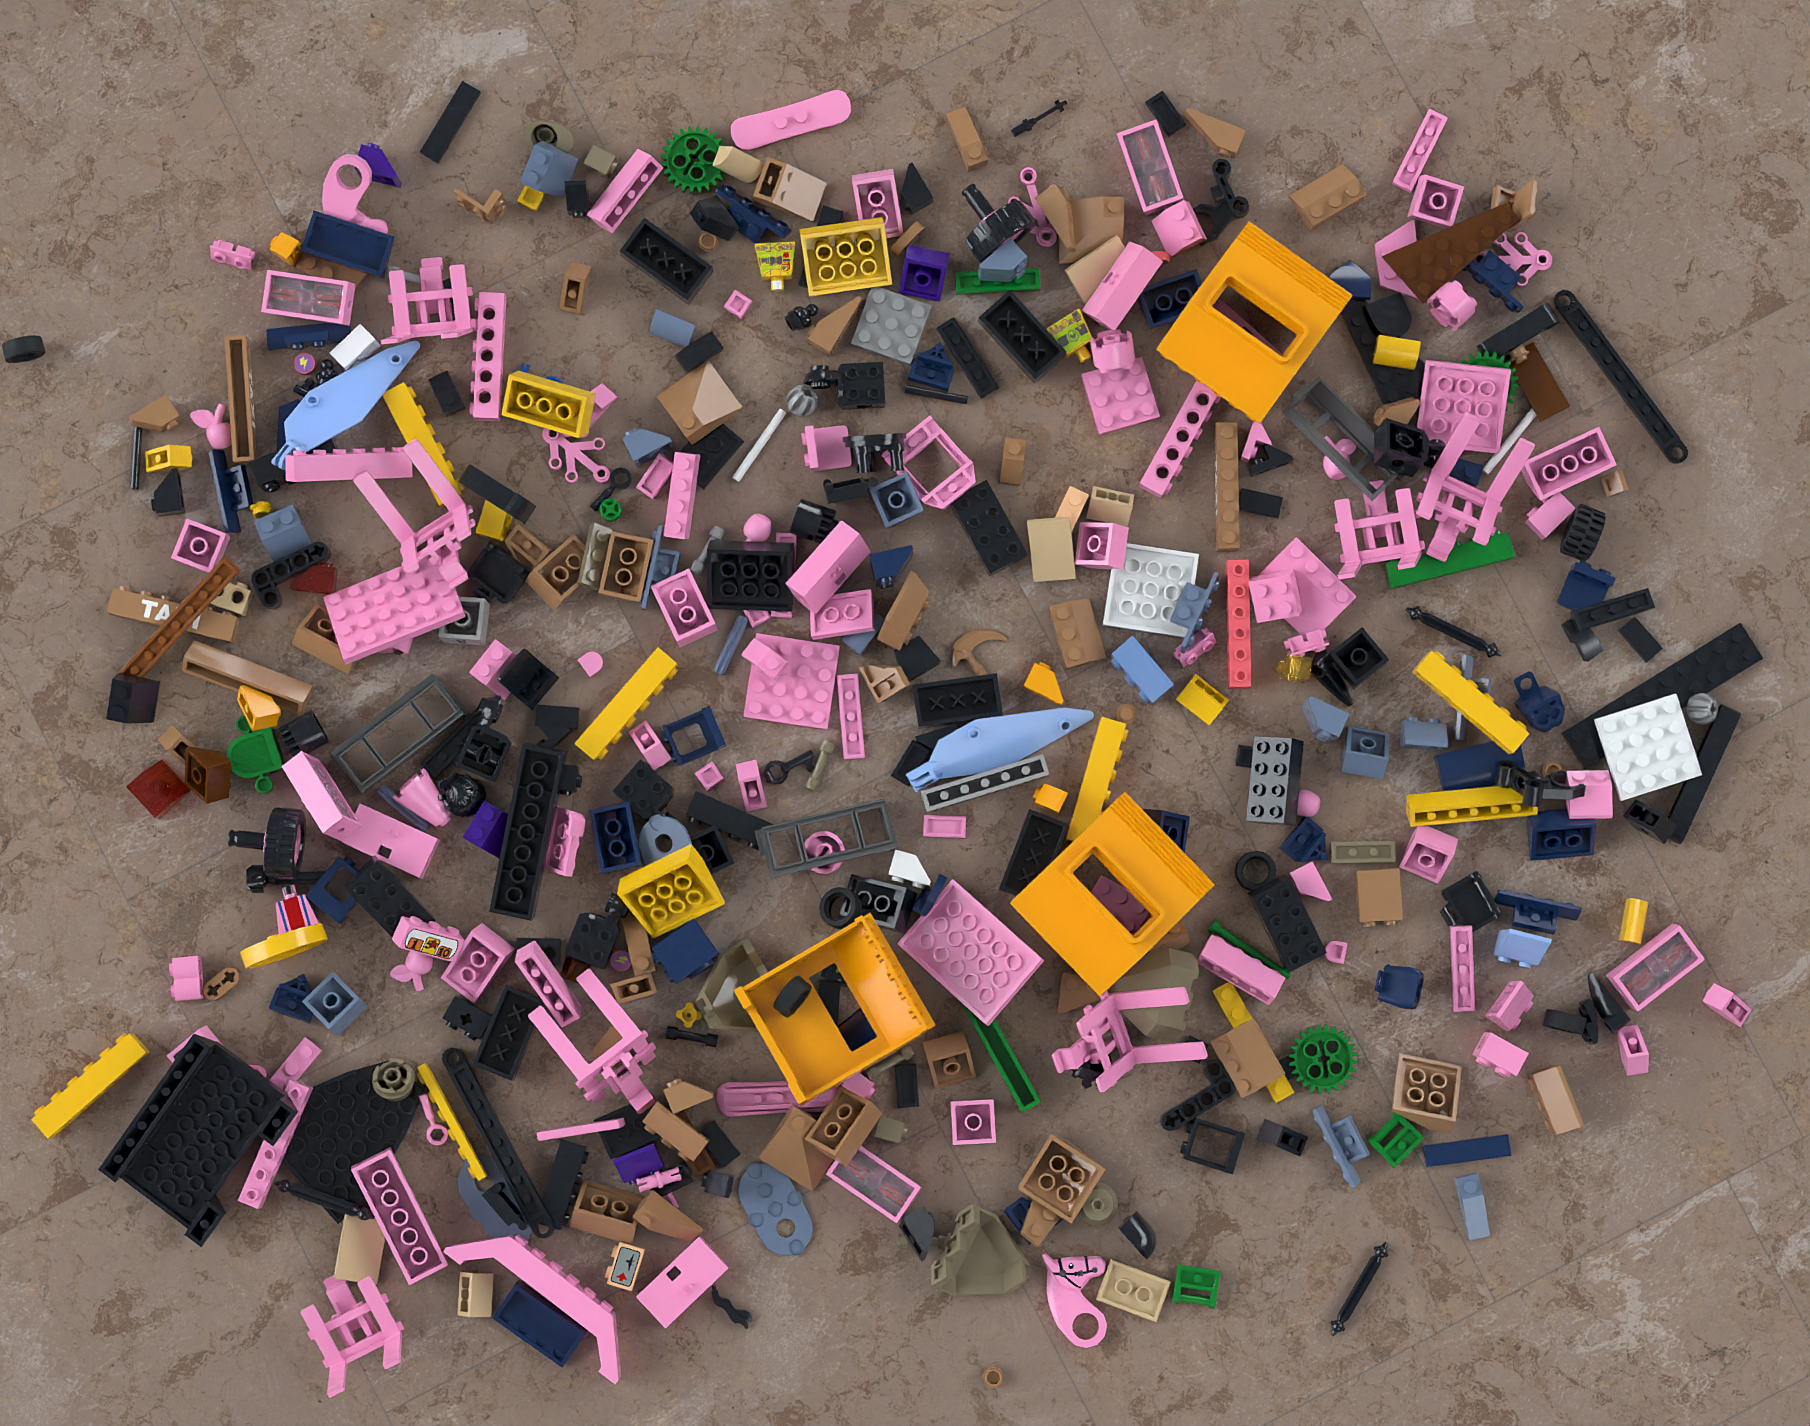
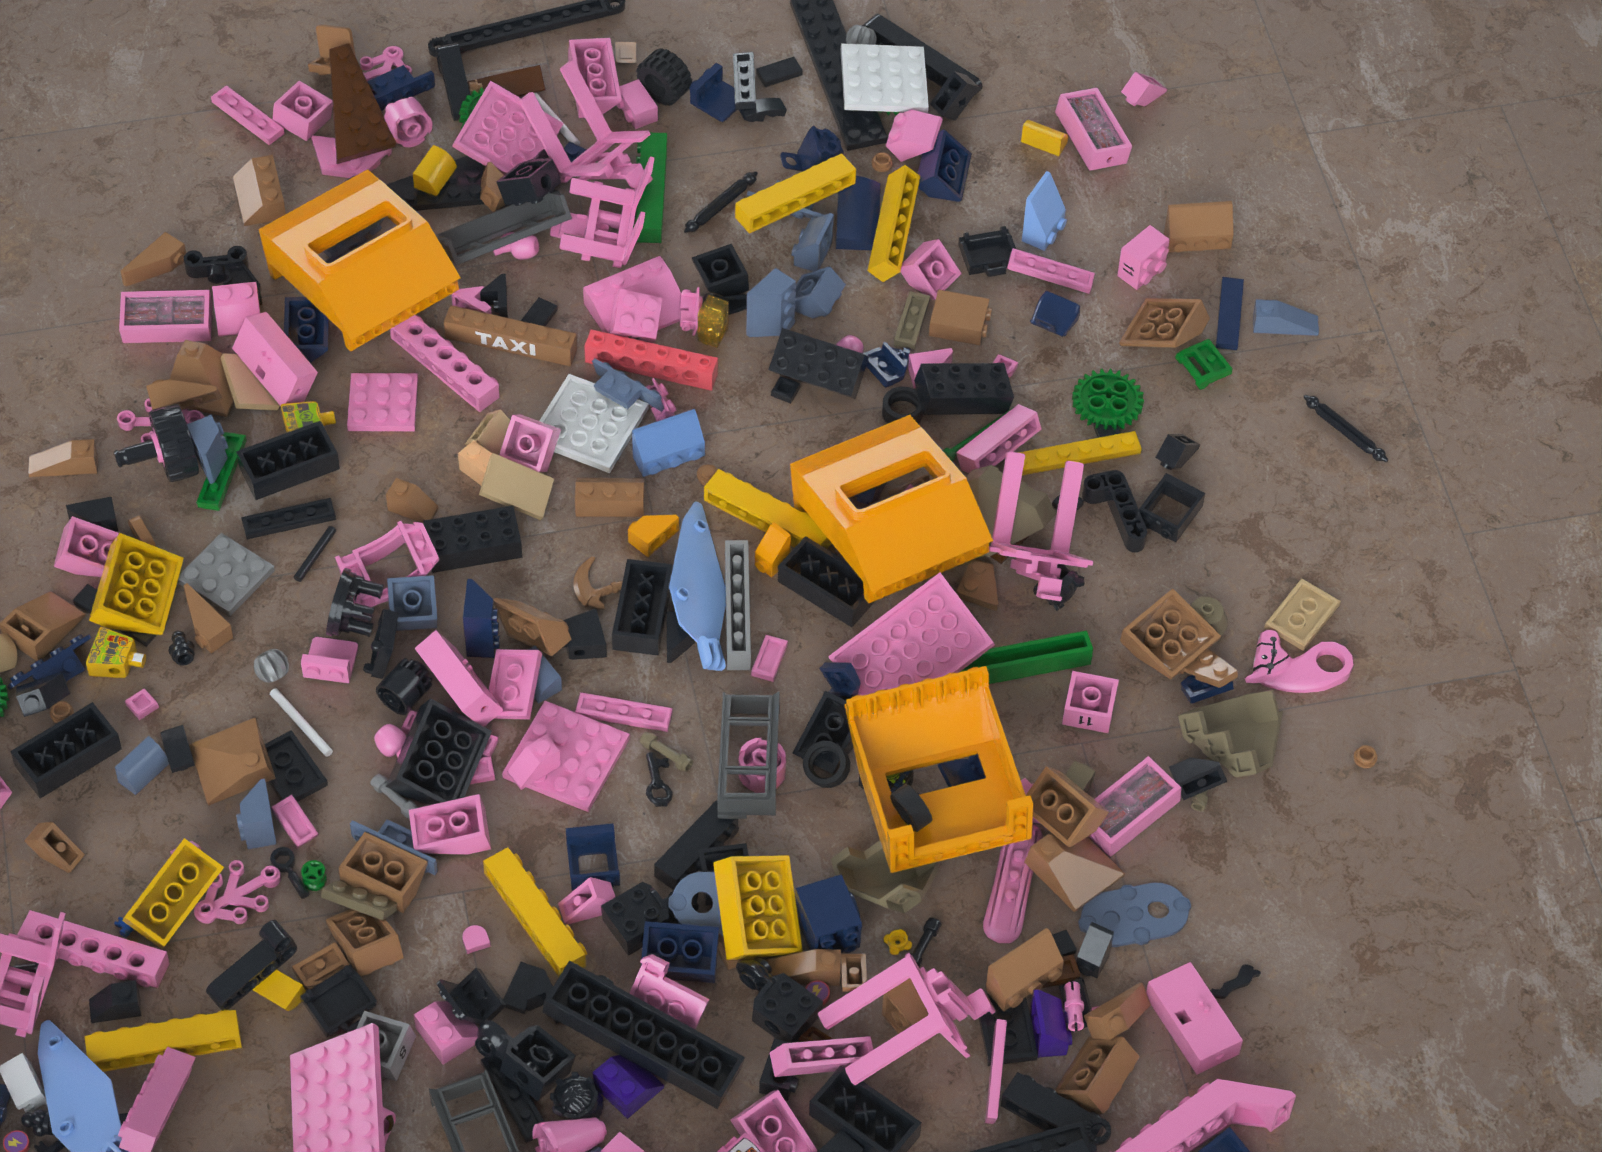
camera: 70 degrees left, 30 degrees down
(458, 516) = (272, 1067): bright pink piece -> none
(625, 1265) = (1161, 1071): brick -> none
(682, 495) = (325, 795): bright pink brick -> none
(685, 1095) = (986, 947): medium nougat slope -> none
(709, 776) = (641, 857): bright pink tile -> none
(731, 645) = (506, 800): sand blue axle -> none
(751, 785) = (664, 816): bright pink slope -> none
(856, 384) = (273, 616): black brick -> none
(884, 680) = (597, 665): medium nougat wing -> none
(907, 867) = (803, 696): white slope -> none
(907, 1085) = (1034, 758): black tile -> none
(912, 758) = (691, 671): black tile -> none
(924, 273) = (184, 528): dark purple slope -> none
(932, 368) = (287, 549): dark blue slope -> none
(949, 1059) = (1019, 709): medium nougat slope -> none
(1028, 124) = (73, 408): black piece -> none
(1113, 350) = (335, 387): bright pink brick -> none
(1139, 1233) = (1248, 585): black brick -> none
(1165, 113) = (110, 299): black tile -> none
(1198, 1279) = (1304, 555): green plate -> none
(1202, 699) = (717, 408): yellow brick -> none
(1247, 1057) = (1097, 448): medium nougat slope -> none
(1344, 1141) = (1196, 400): sand blue bracket -> none
(1389, 316) = (396, 172): black tile -> none
(1510, 1005) = (1096, 238): bright pink slope -> none
(1532, 787) = (897, 159): black piece -> none
(1536, 912) = (1010, 204): dark blue bracket -> none
(1564, 1021) = (1125, 203): black tyre -> none
(1591, 1027) = (1137, 190): black slope -> none
(1607, 1007) = (1119, 173): black piece -> none
(1633, 1050) = (1167, 165): bright pink slope -> none

